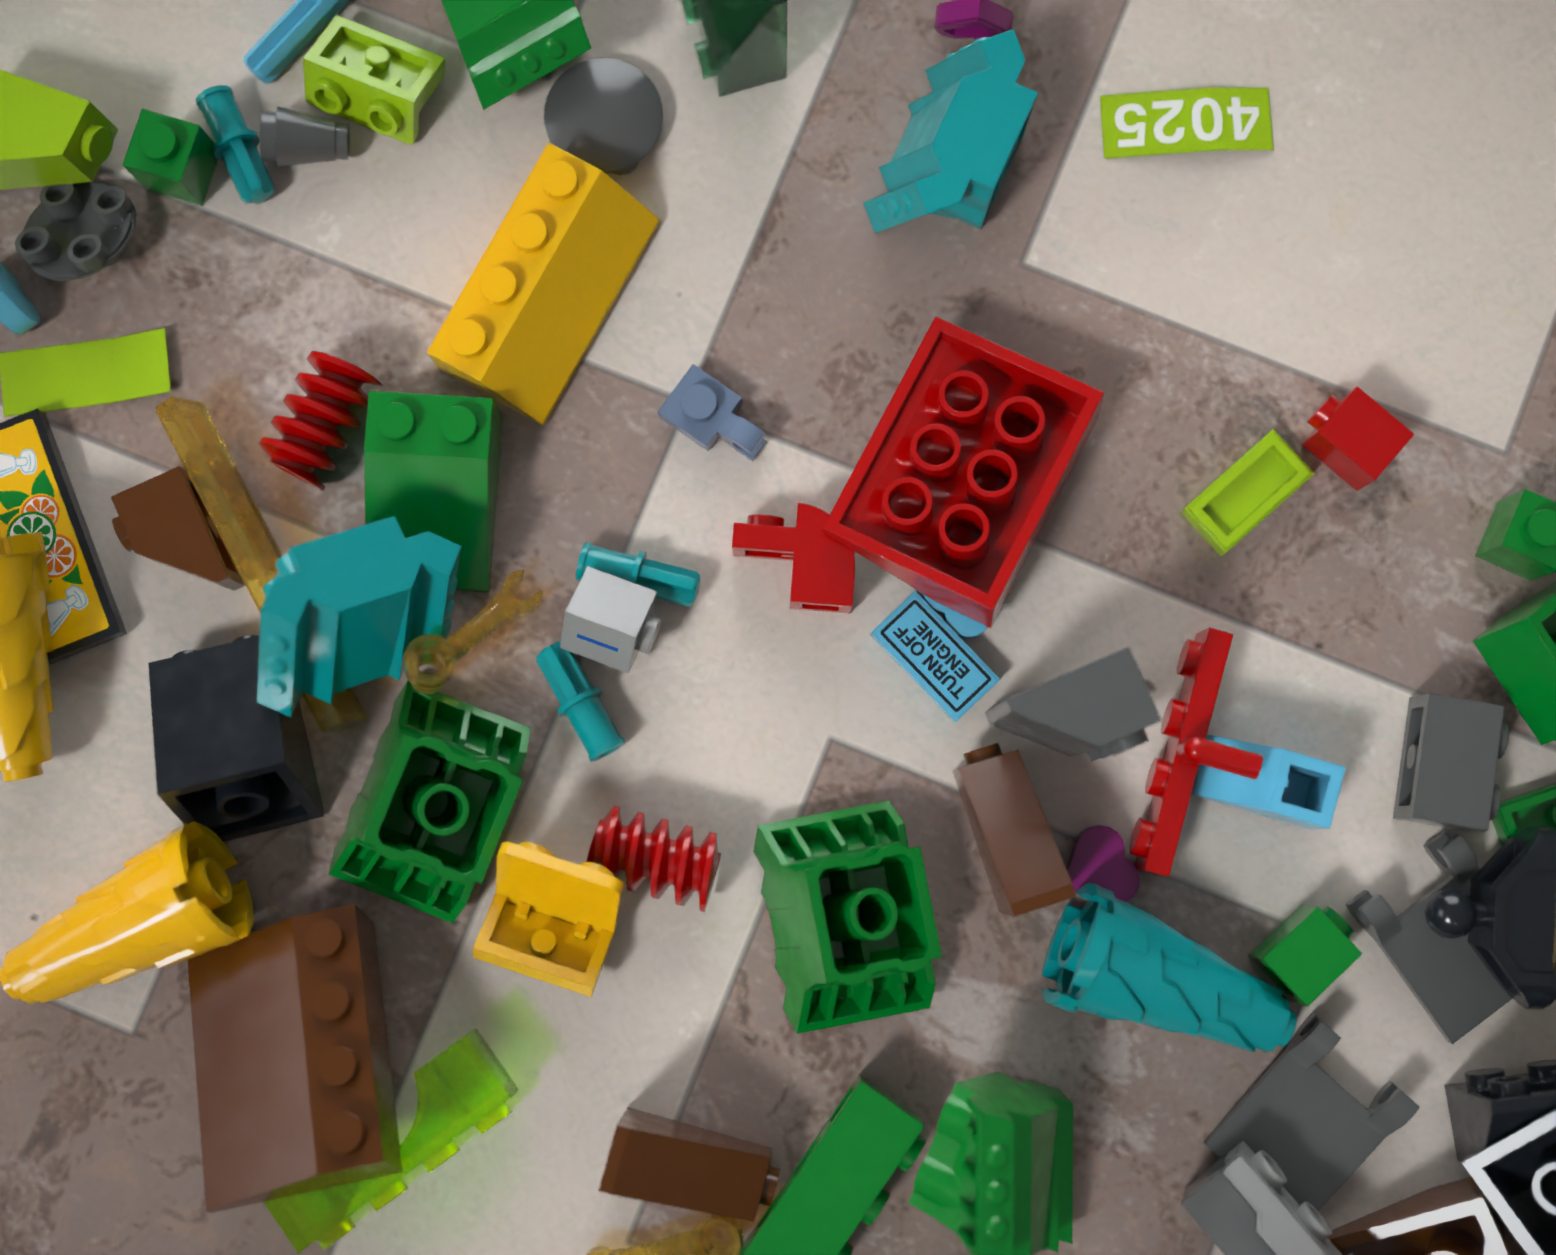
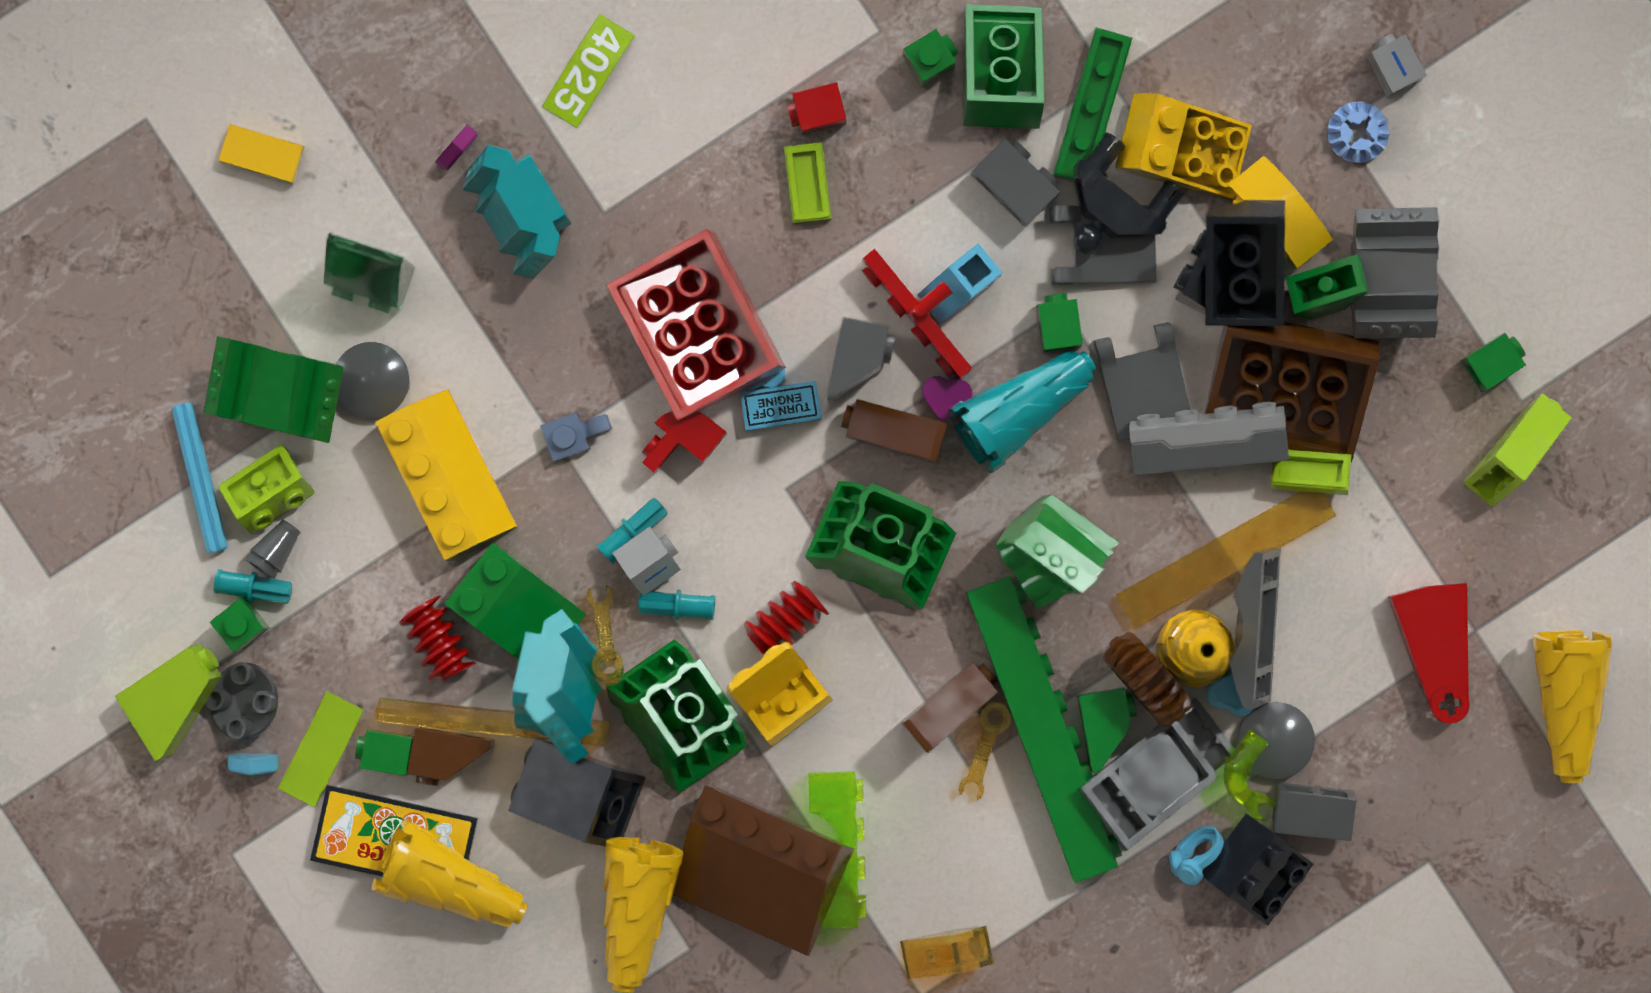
camera: 55 degrees left, 5 degrees up
(125, 448) = (384, 752): none -> green brick

